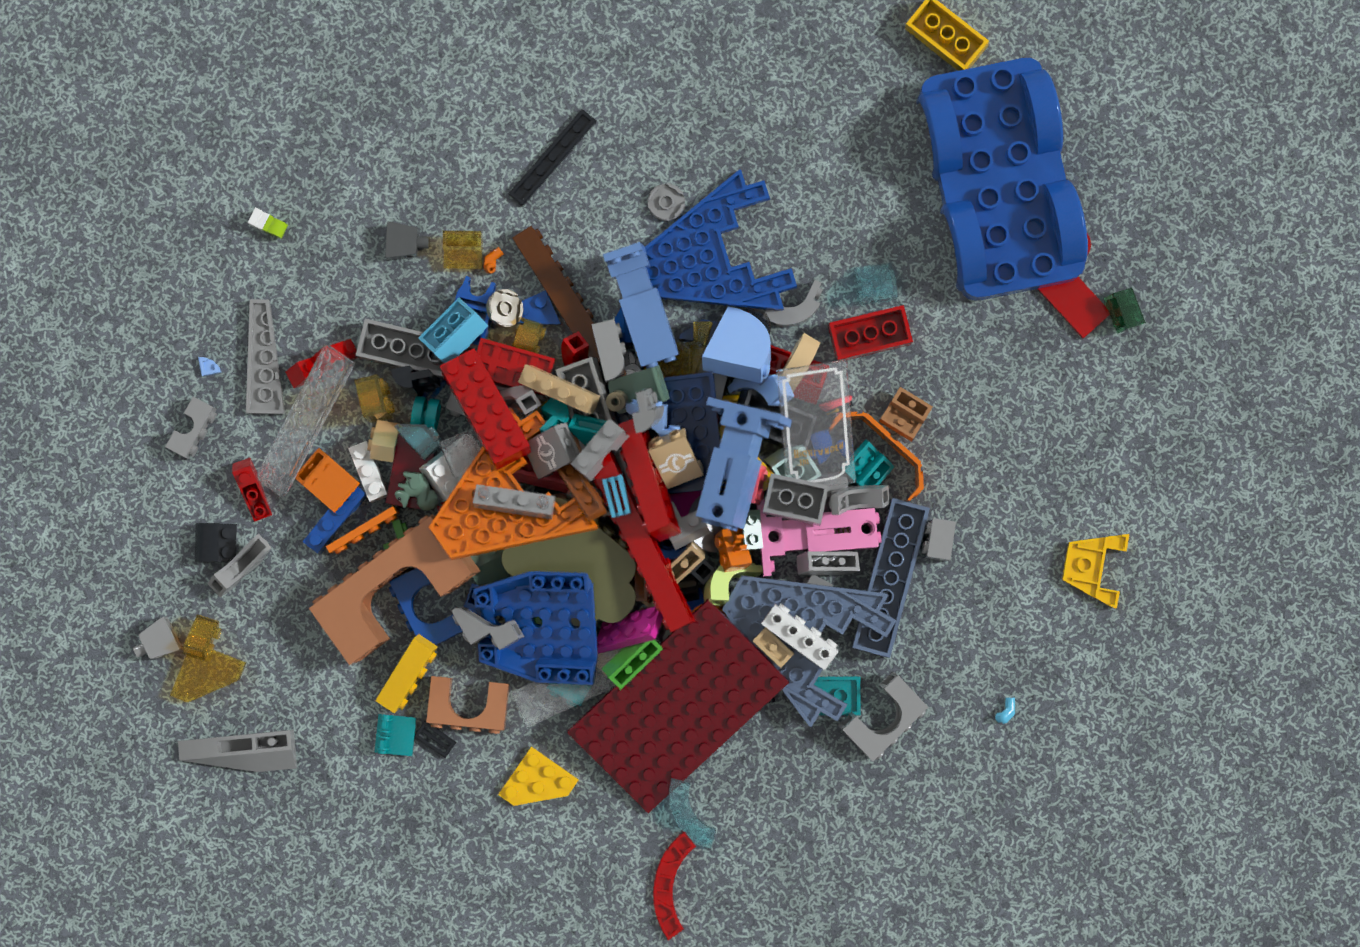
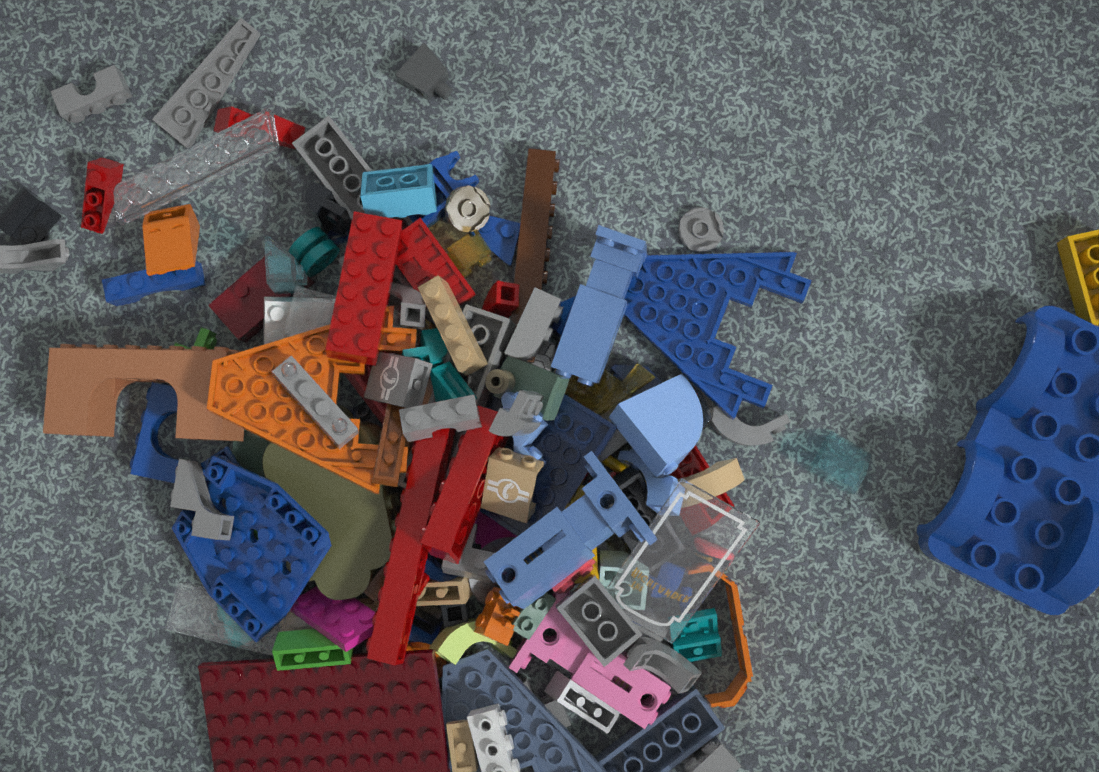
camera: 35 degrees right, 0 degrees up
(208, 367) = (155, 52): light blue tile -> none
(368, 472) = (219, 262): white brick -> none
(369, 527) = (166, 315): orange plate -> none
(374, 398) = (275, 196): clear yellow brick -> none
(383, 441) = (248, 247): tan brick -> none
(395, 735) = (44, 532): teal hinge -> none
(405, 675) = (97, 483): yellow brick -> none
(417, 486) = (247, 313): sand green animal -> none
(440, 733) = (79, 565): black tile -> none
(441, 711) = (103, 548): nougat arch -> none
(462, 249) = (474, 124): clear yellow brick -> none
(490, 260) = (492, 155): orange arm -> none
(537, 780) = (141, 684): yellow plate -> none
(552, 157) = (626, 105): black tile -> none
(616, 496) = (413, 474): medium azure tile -> none
(870, 333) = (799, 508): red brick -> none
(905, 414) = (772, 613): medium nougat brick -> none
(1076, 305) = (1021, 638): red tile -> none
(1124, 310) = (1067, 682): clear green brick -> none

